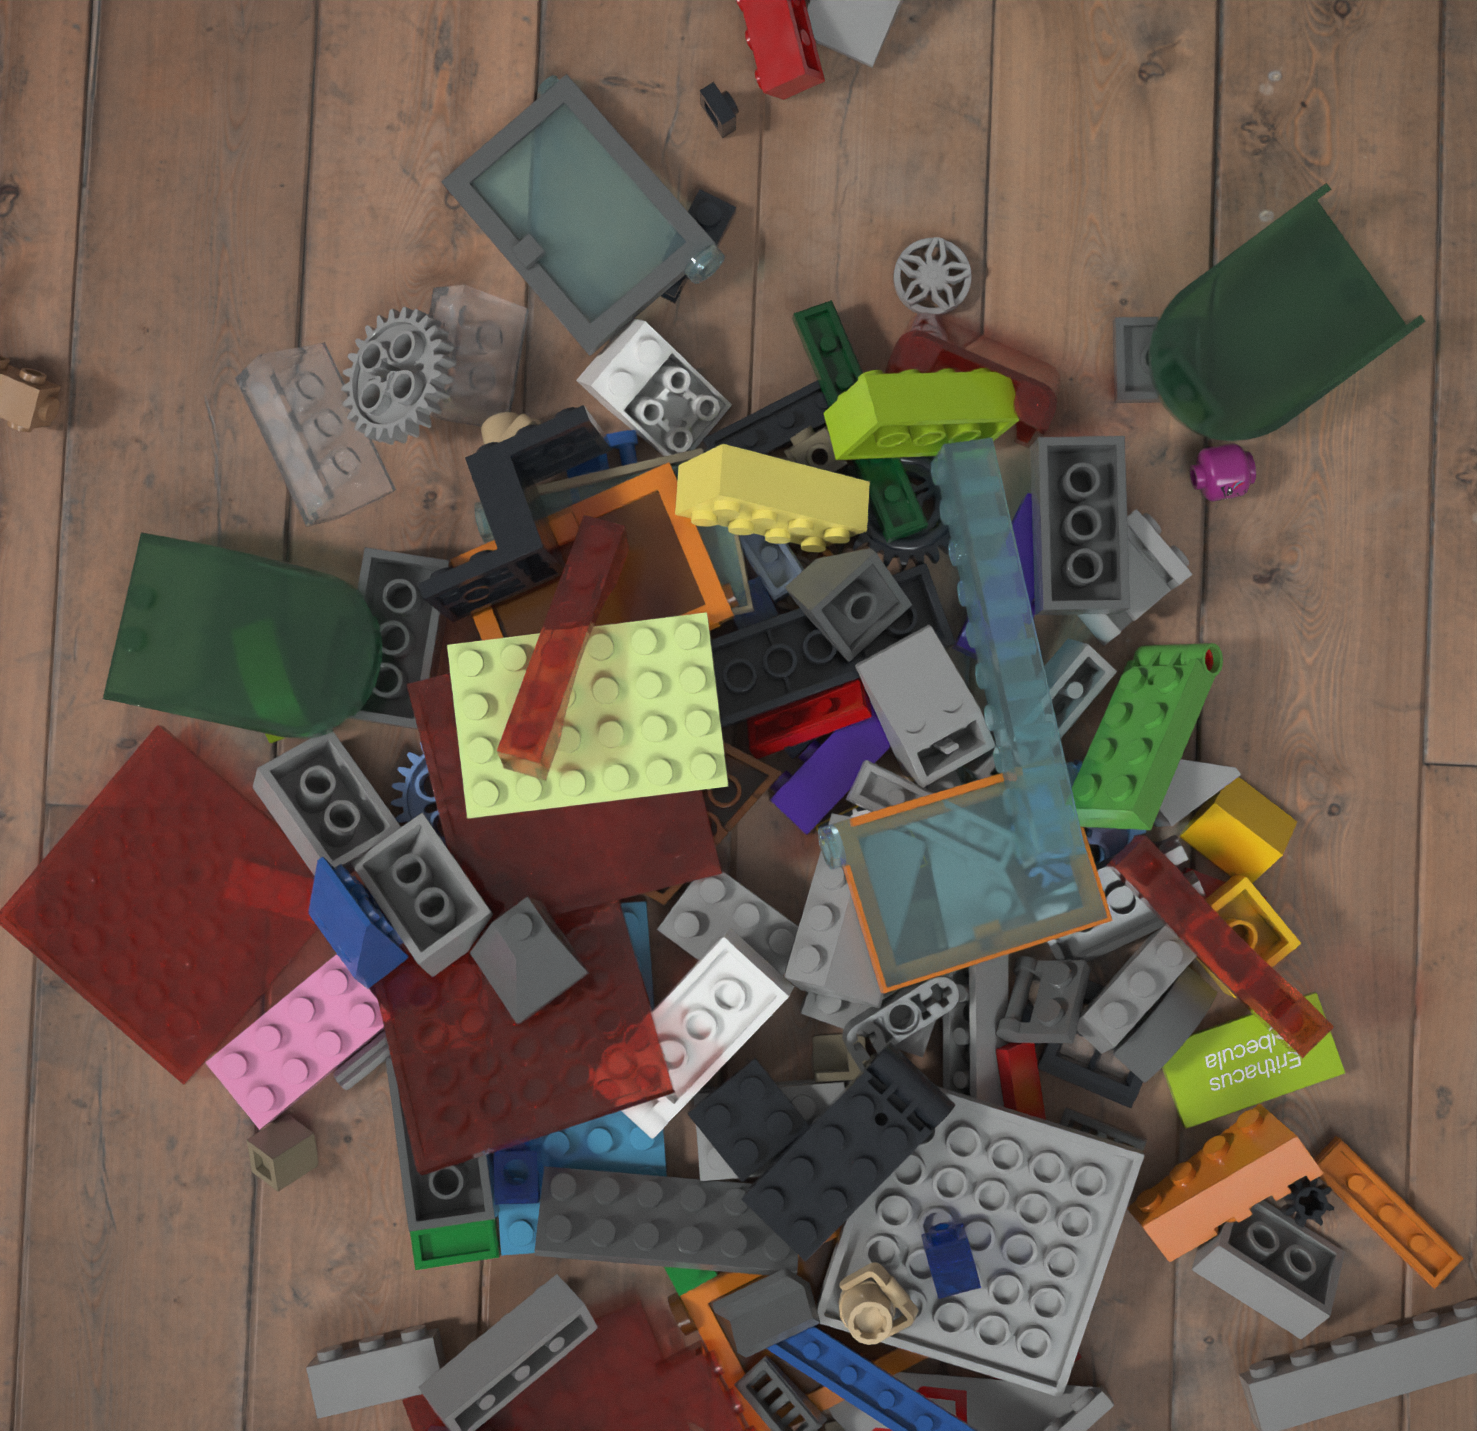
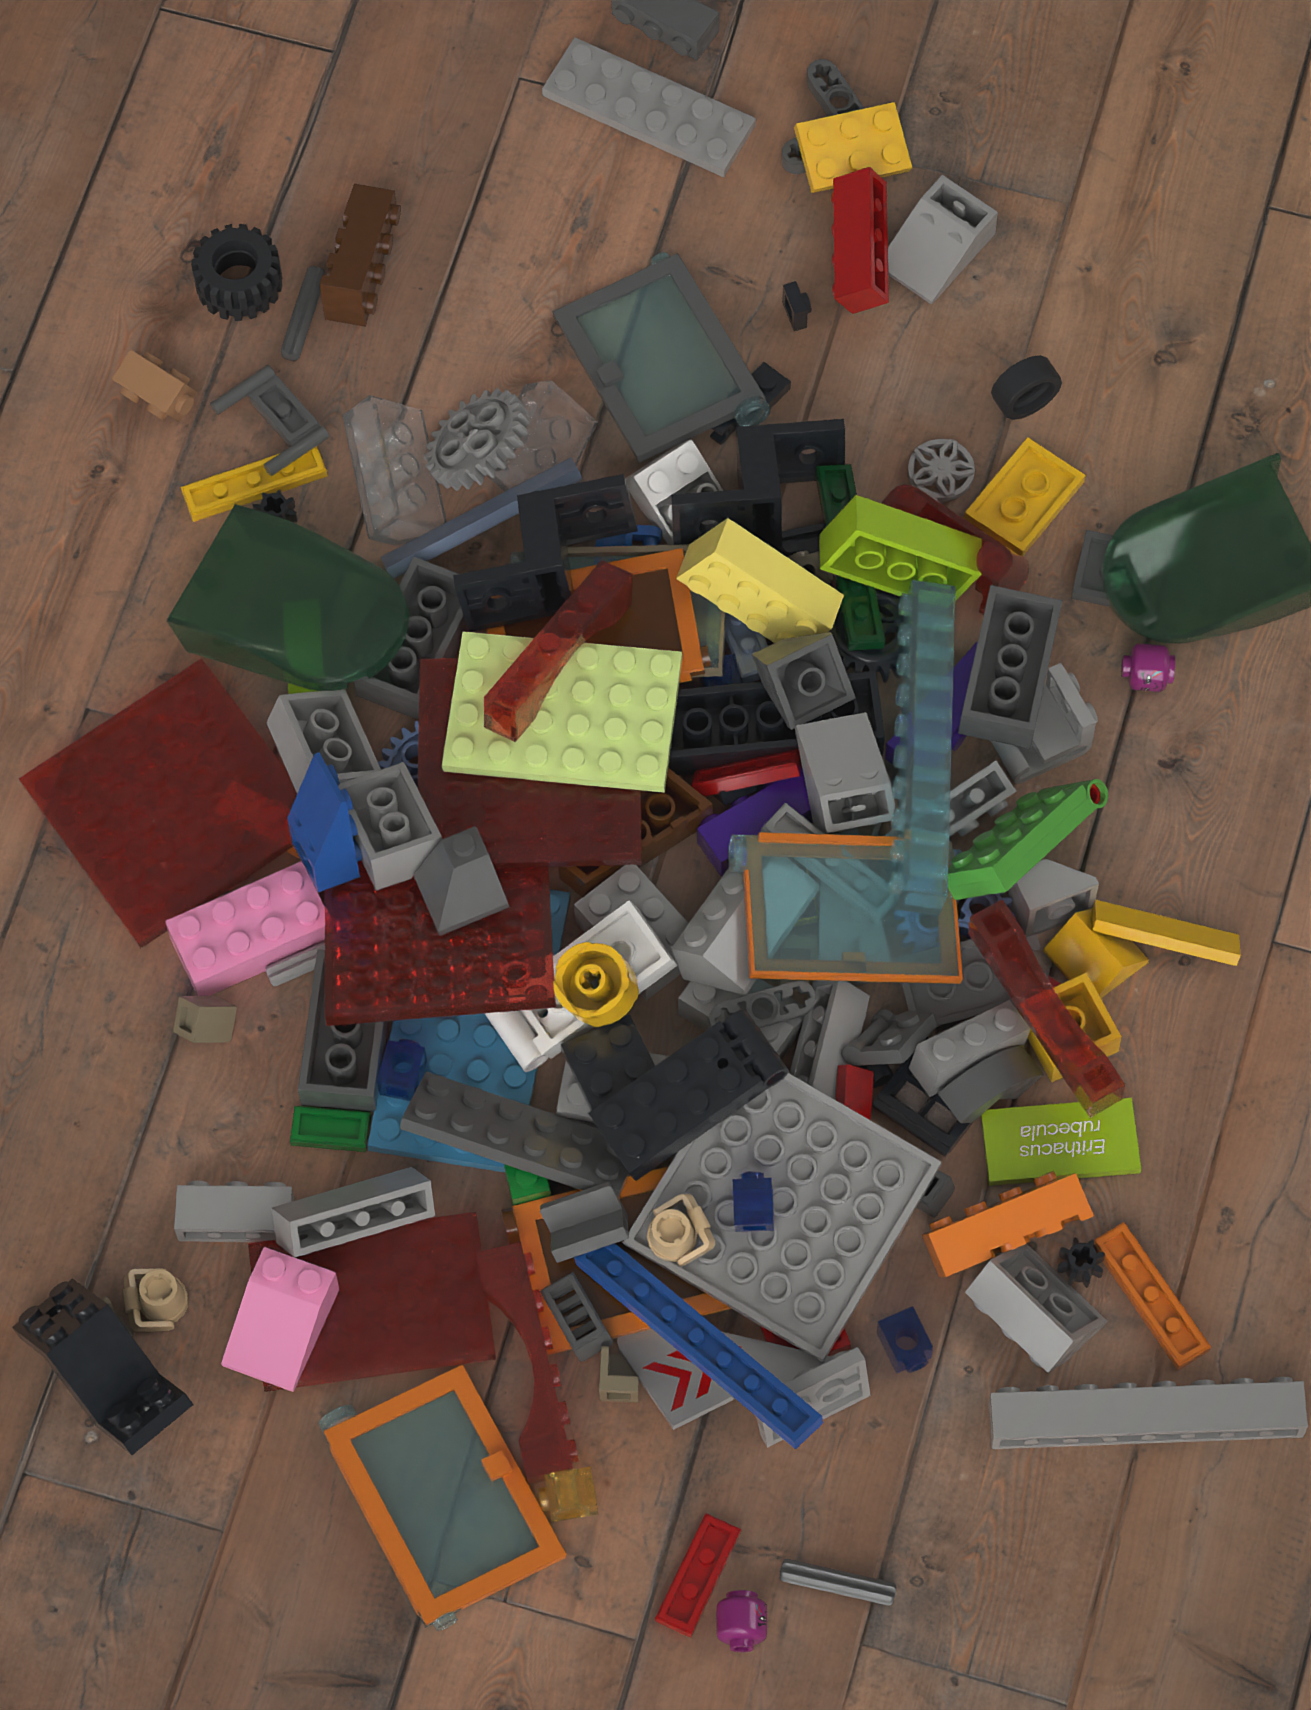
camera: 15 degrees right, 20 degrees down
(39, 199) = (230, 249): none -> black tyre
(154, 252) = (302, 314): none -> dark grey axle
(157, 479) = (248, 483): none -> yellow tile
(165, 387) = (281, 411): none -> dark grey plate
(199, 164) = (359, 253): none -> reddish brown wedge
(201, 512) = (278, 506): none -> black gear
(429, 473) = (477, 519): none -> sand blue tile
(716, 1077) = (575, 991): none -> yellow brick
(729, 325) = (764, 461): none -> black bracket
(1009, 155) = (1026, 387): none -> black tyre
(1036, 289) = (1025, 496): none -> yellow plate
(1125, 1324) = (905, 1324): none -> clear blue brick
(1314, 794) = (1165, 932): none -> yellow tile

